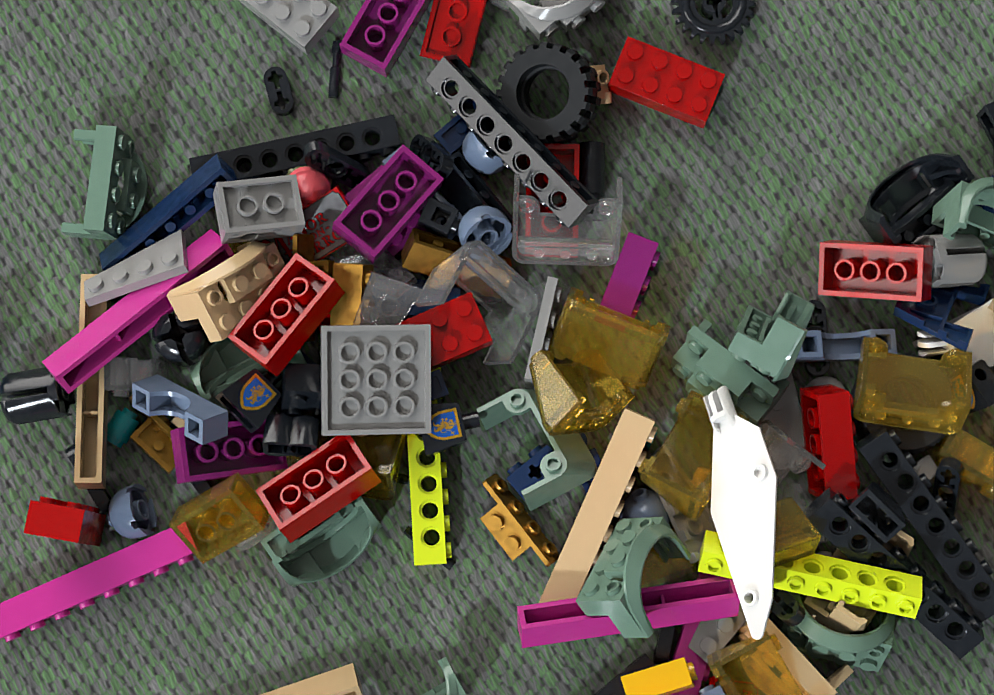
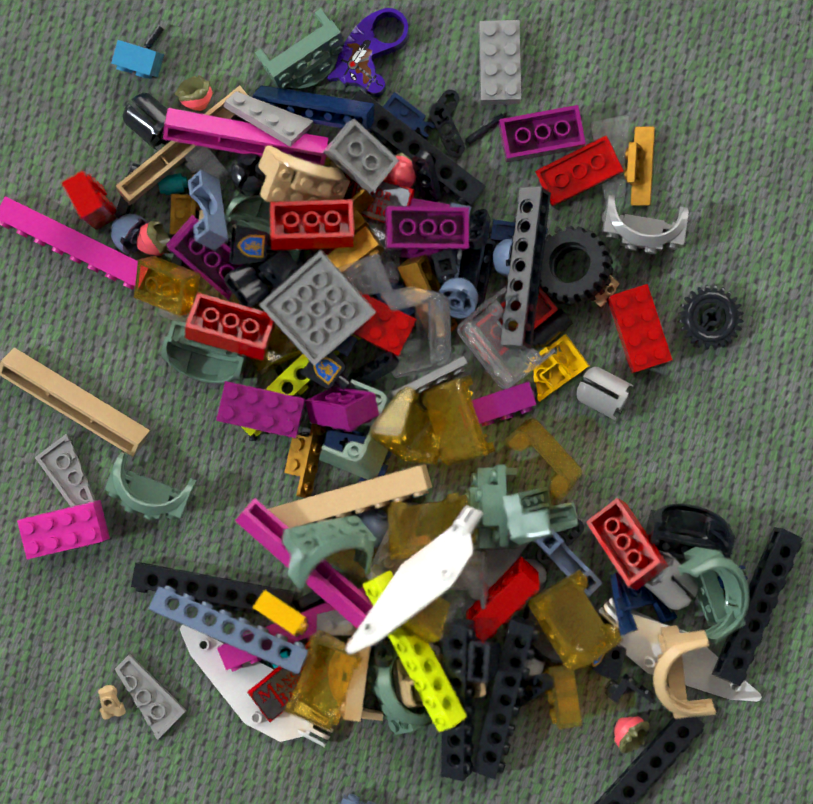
camera: 50 degrees right, 5 degrees up
(48, 327) = (195, 93): none -> olive hair
(156, 139) = (356, 59): none -> dark purple animal
(160, 494) = (153, 239): none -> hair
(255, 132) = (408, 114): none -> dark blue plate
(286, 95) = (447, 145): none -> black beam
(429, 527) = (261, 409): none -> magenta brick
(489, 365) = (382, 365): none -> black beam
(498, 442) = (342, 408): none -> magenta brick
(640, 194) = (558, 368): none -> yellow slope
(683, 275) = (566, 468): none -> clear yellow windscreen
(700, 169) = (598, 400): none -> light grey cylinder

